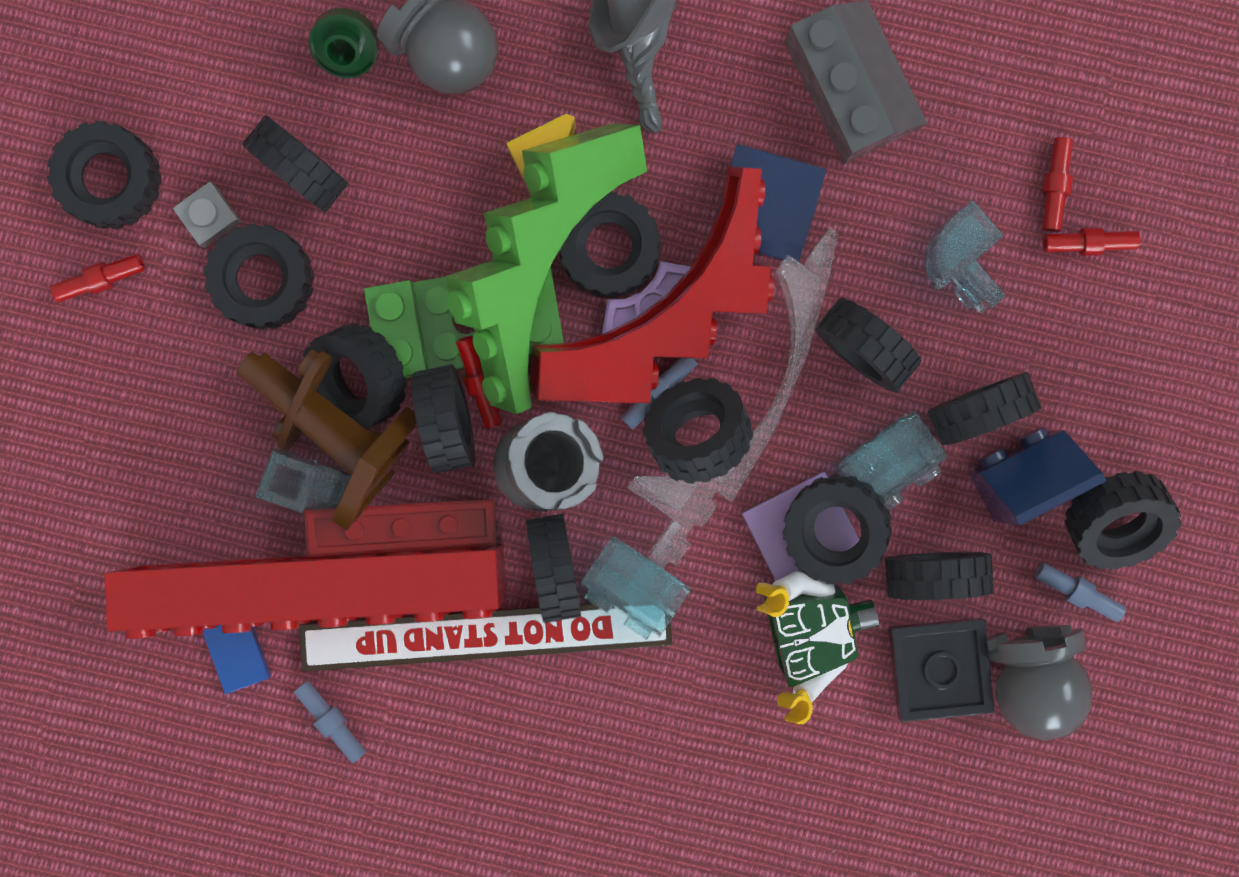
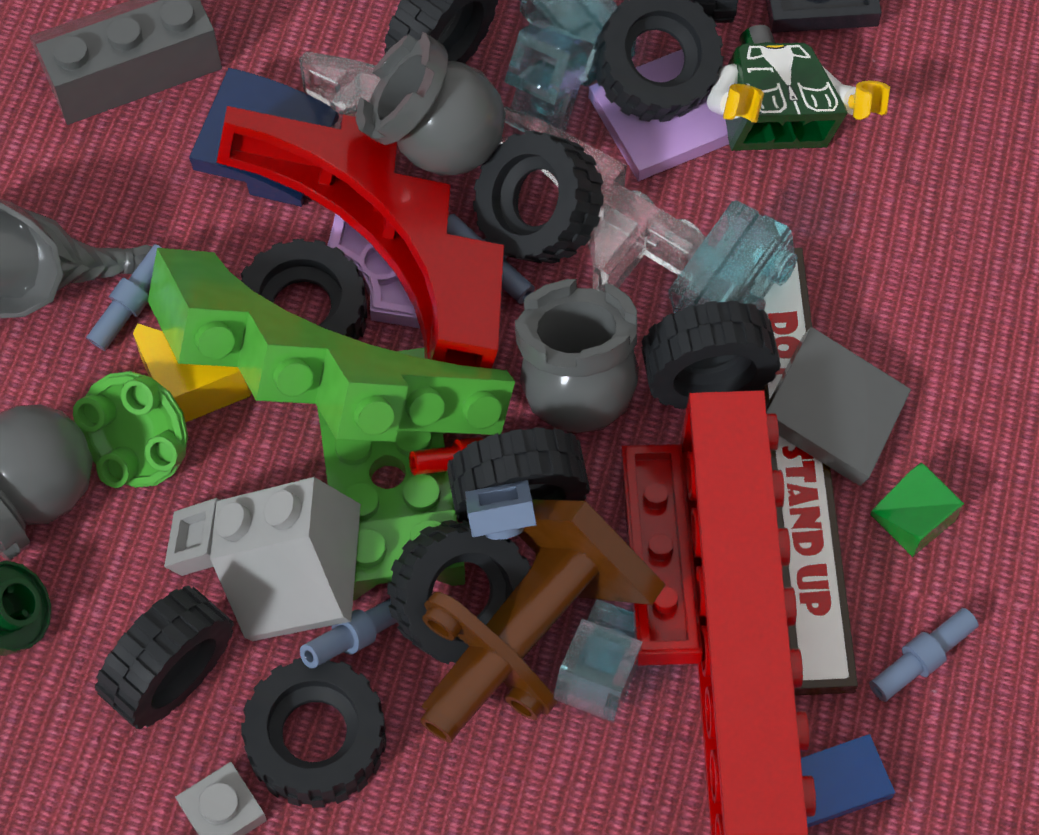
camera: 90 degrees left, 25 degrees down
(326, 298) = (348, 636): none -> sand blue bar
(380, 248) = (287, 557): none -> light grey slope
(387, 404) = (500, 510): none -> sand blue plate
(406, 181) = (191, 538): none -> light grey plate
(443, 724) = (917, 509): none -> green slope
(489, 121) = (132, 429): none -> bright green dish
(525, 665) = (836, 406): none -> dark grey tile
(612, 107) = (127, 299): none -> sand blue bar
(761, 338) = (433, 108): none -> dark grey tile
(817, 436) = (548, 72): none -> clear light blue brick

